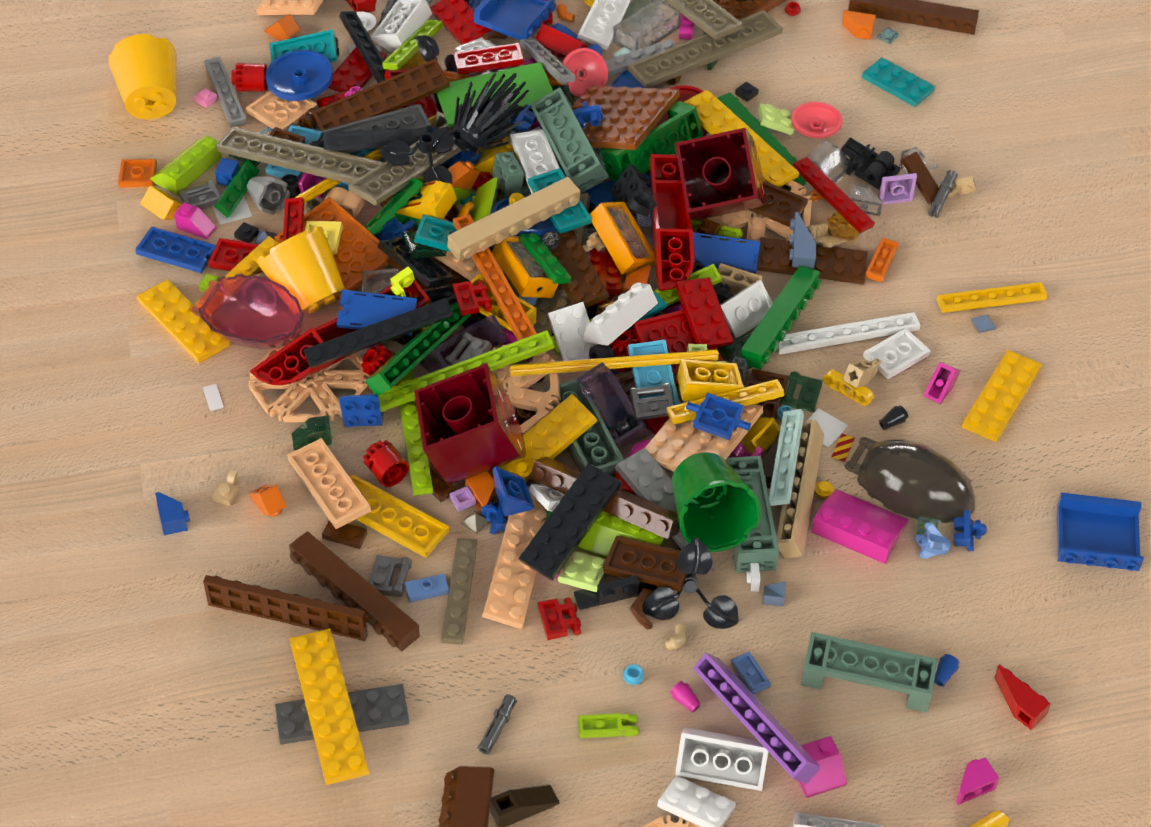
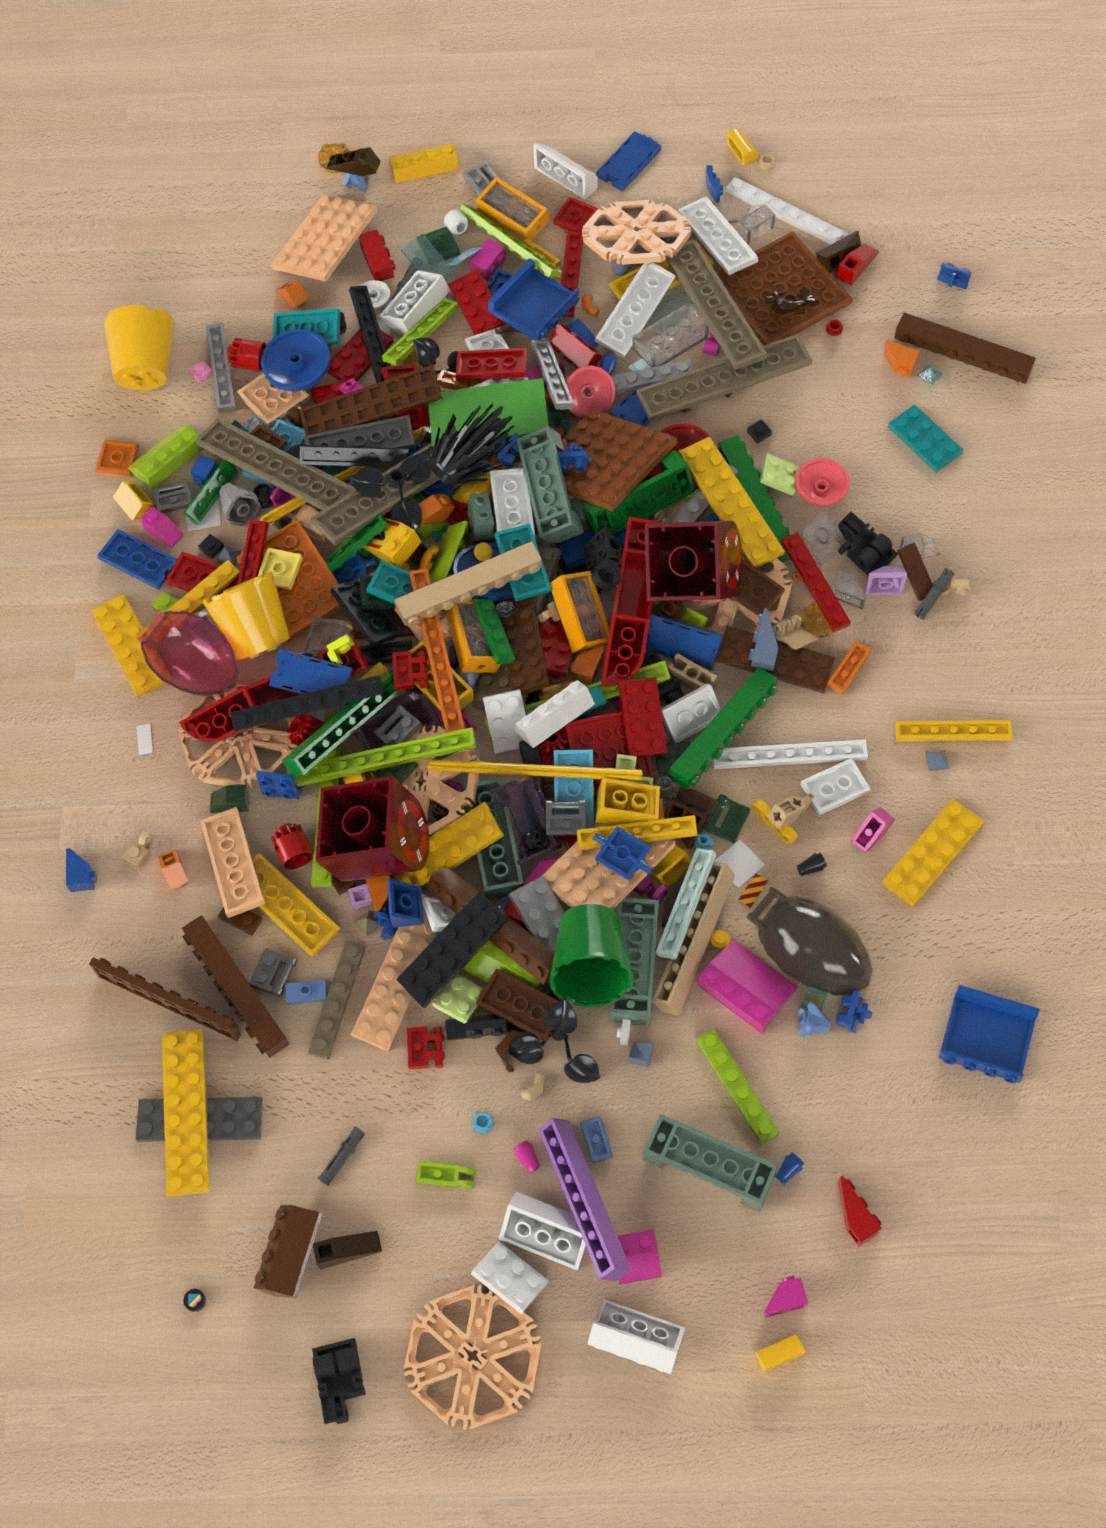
camera: 15 degrees right, 15 degrees up
(875, 609) = (737, 1086): none -> lime plate

